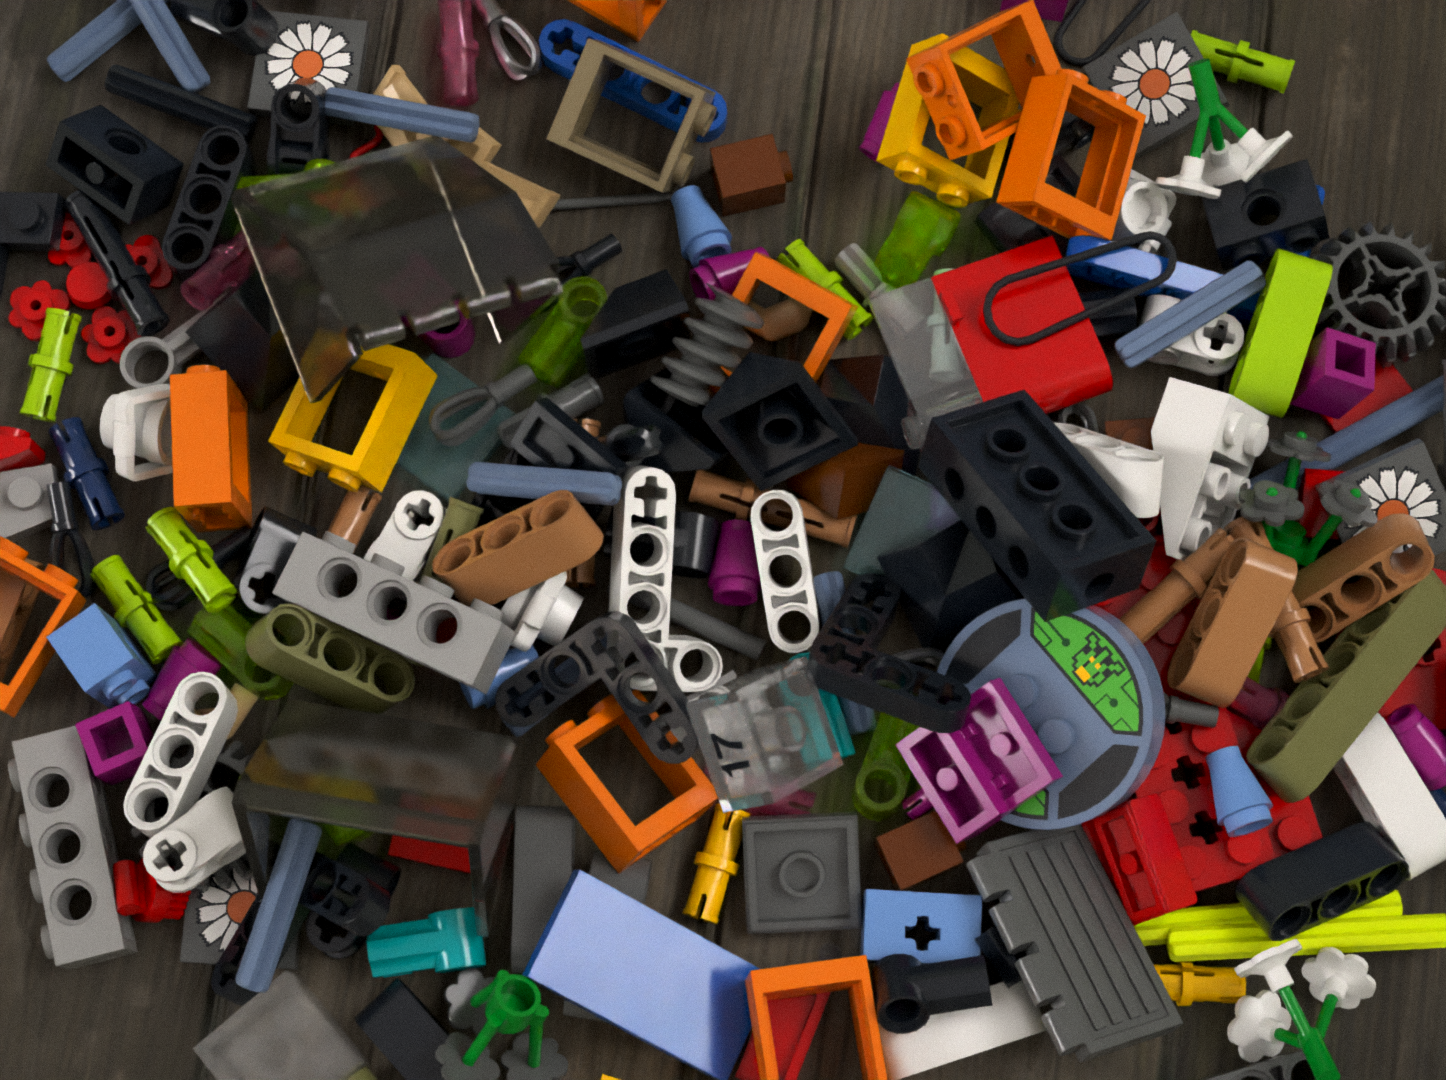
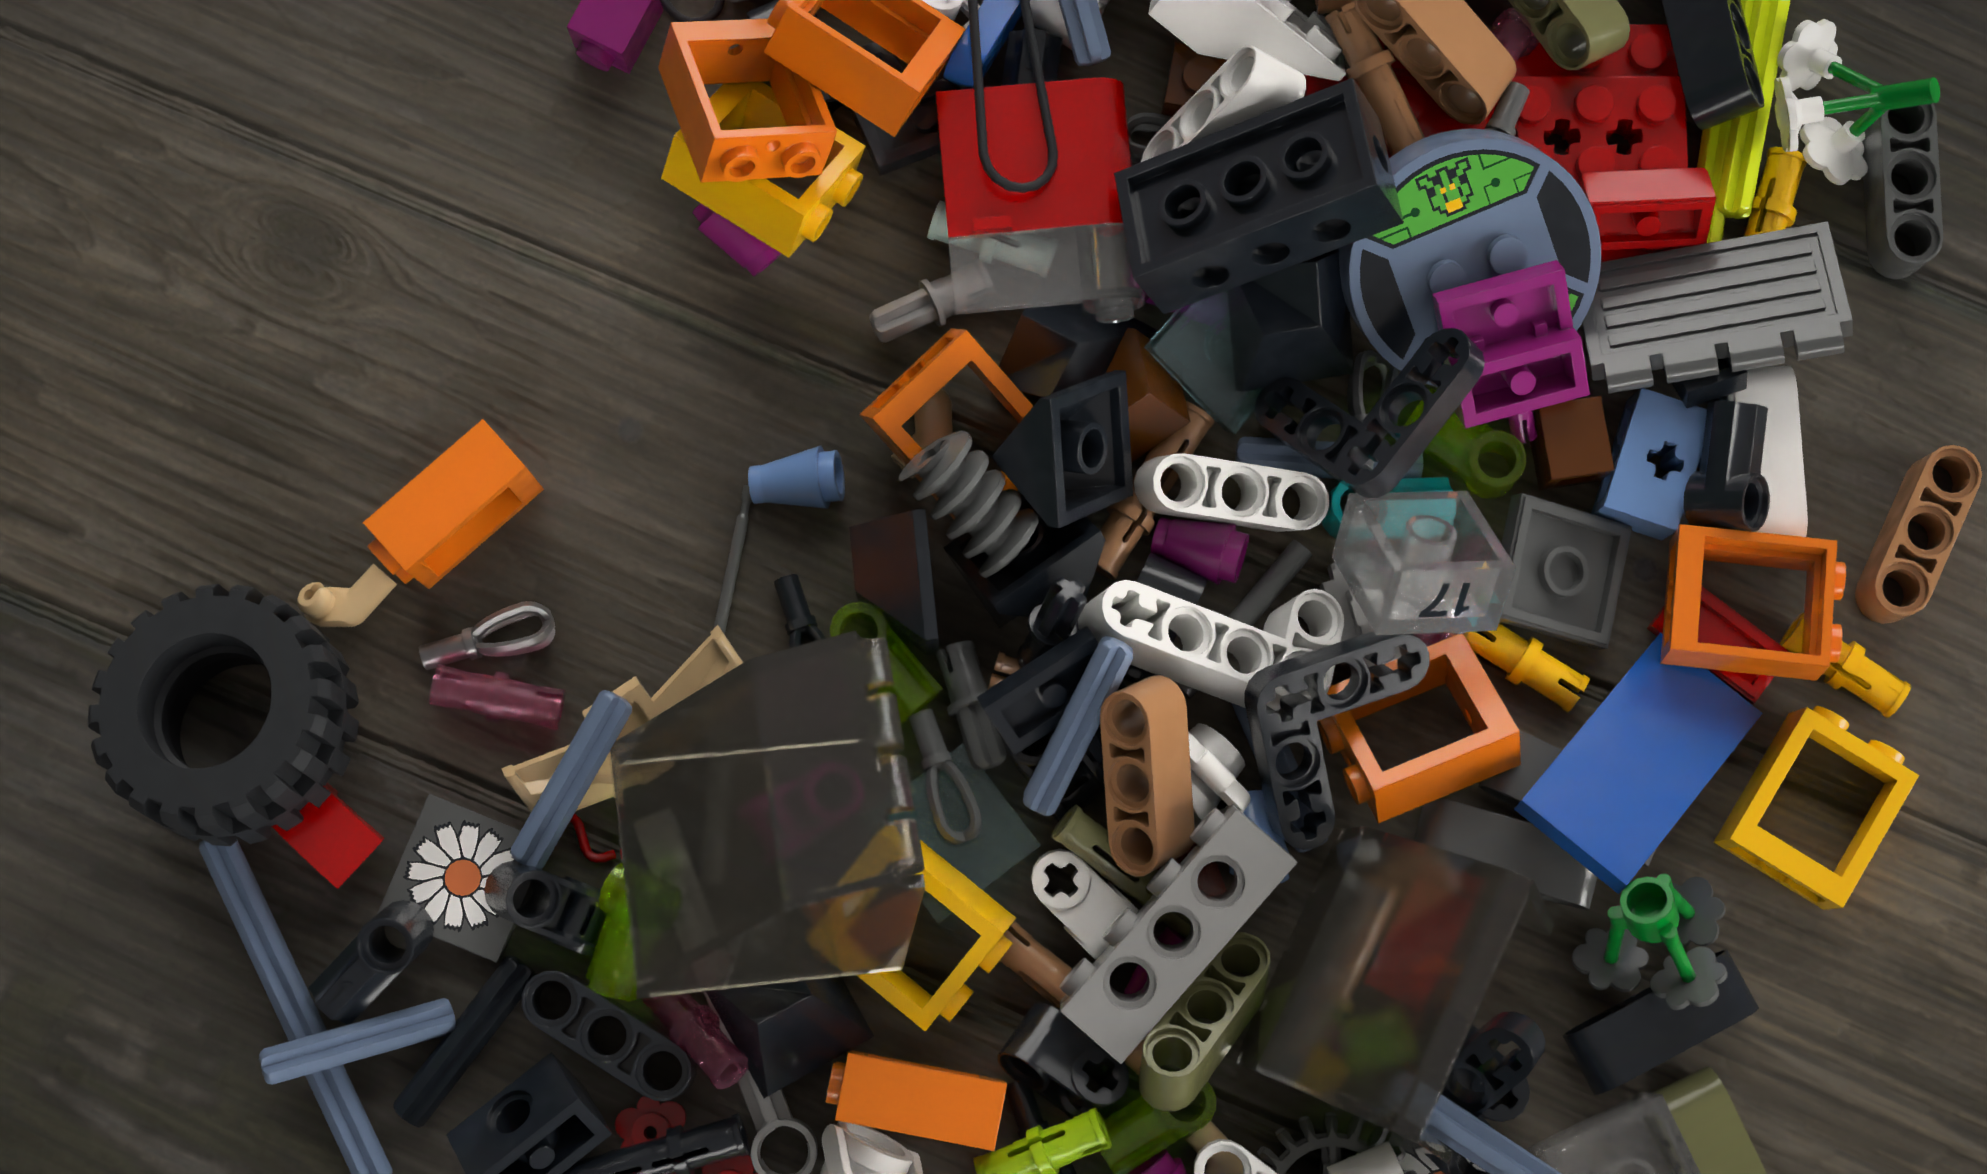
camera: 80 degrees left, 5 degrees up
(440, 943) = (1537, 977): teal piece -> none
(584, 94) = (691, 552): dark tan window -> none
(629, 86) = (586, 499): blue beam -> none
(721, 271) = (867, 465): magenta cone -> none
(750, 174) = (753, 405): reddish brown brick -> none
(805, 263) = (878, 374): lime pin -> none
(917, 236) = (880, 236): clear neon green piece -> none
(1237, 795) = (1608, 90): medium blue cone -> none

